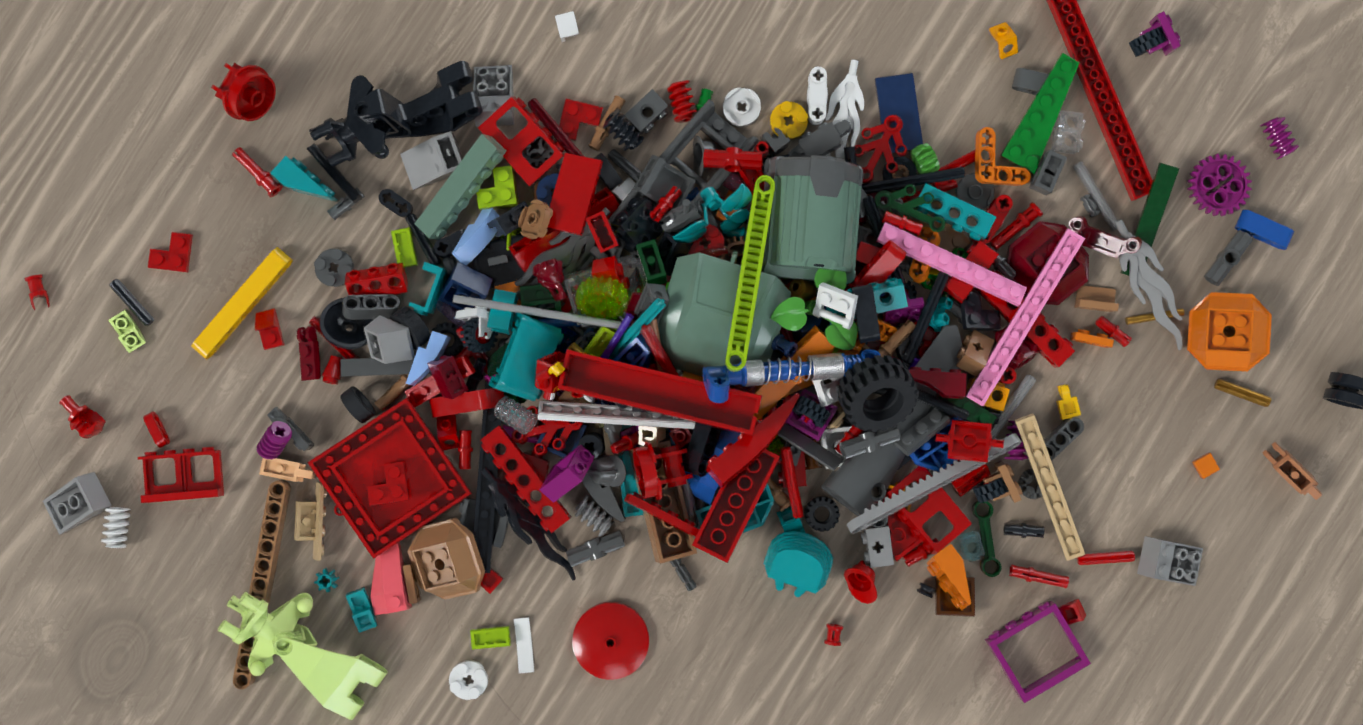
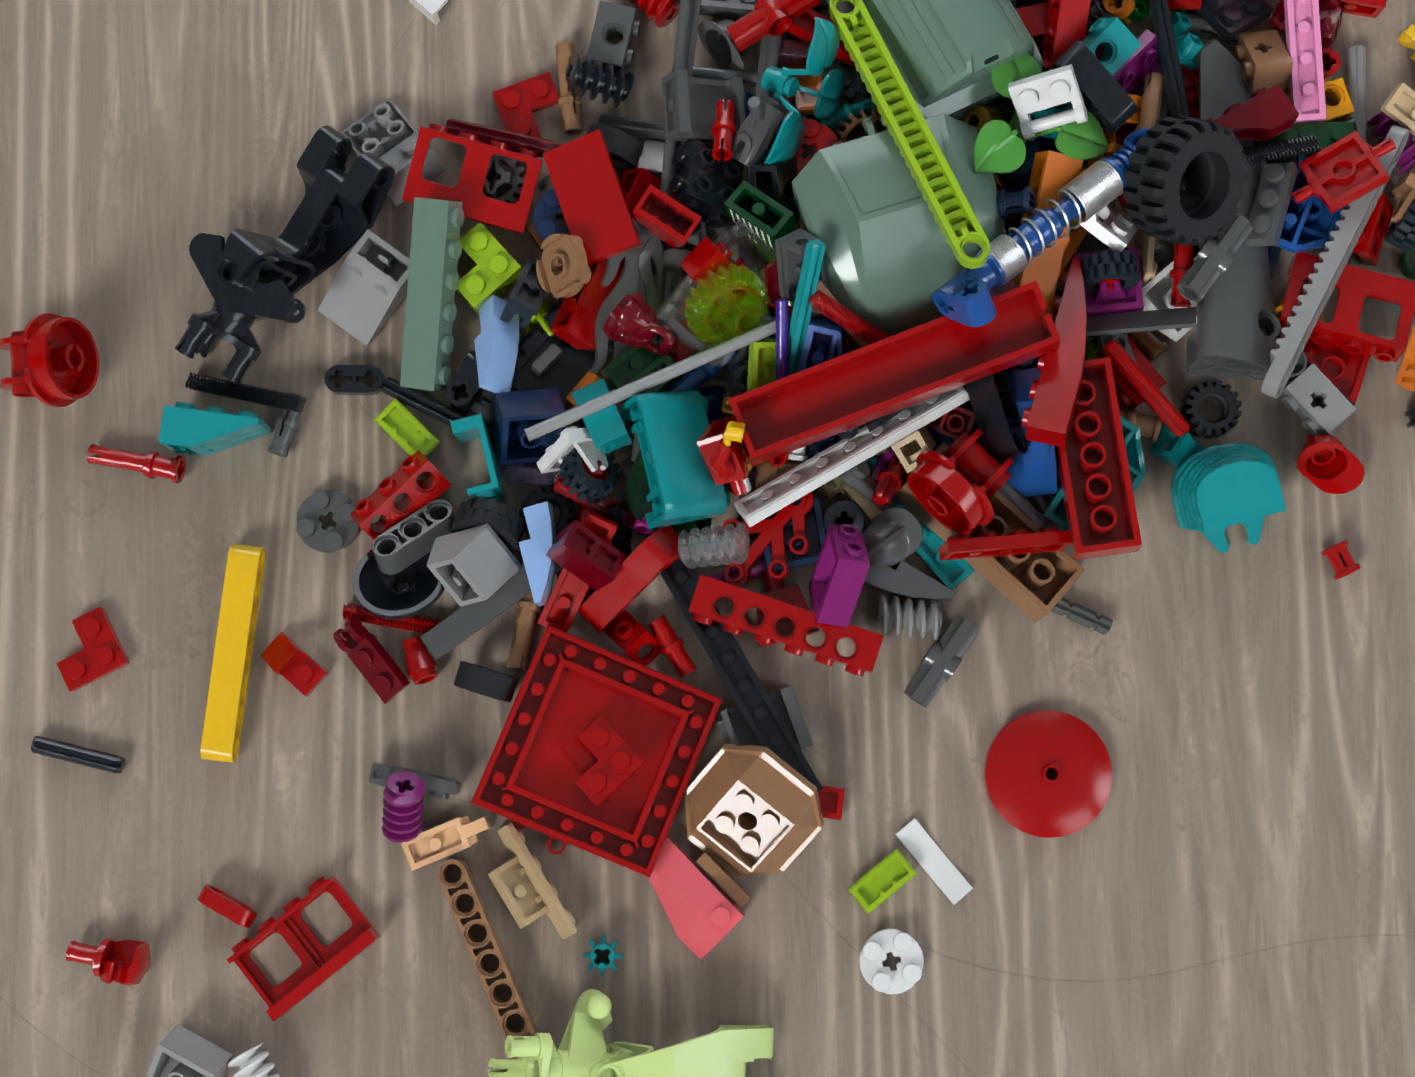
camera: 35 degrees left, 5 degrees down
(127, 330) = (97, 797): yellowish green slope -> none
(361, 609) = (678, 964): teal slope -> none
(519, 518) = (788, 674): black piece -> none
(917, 555) = (1376, 375): red pin -> none

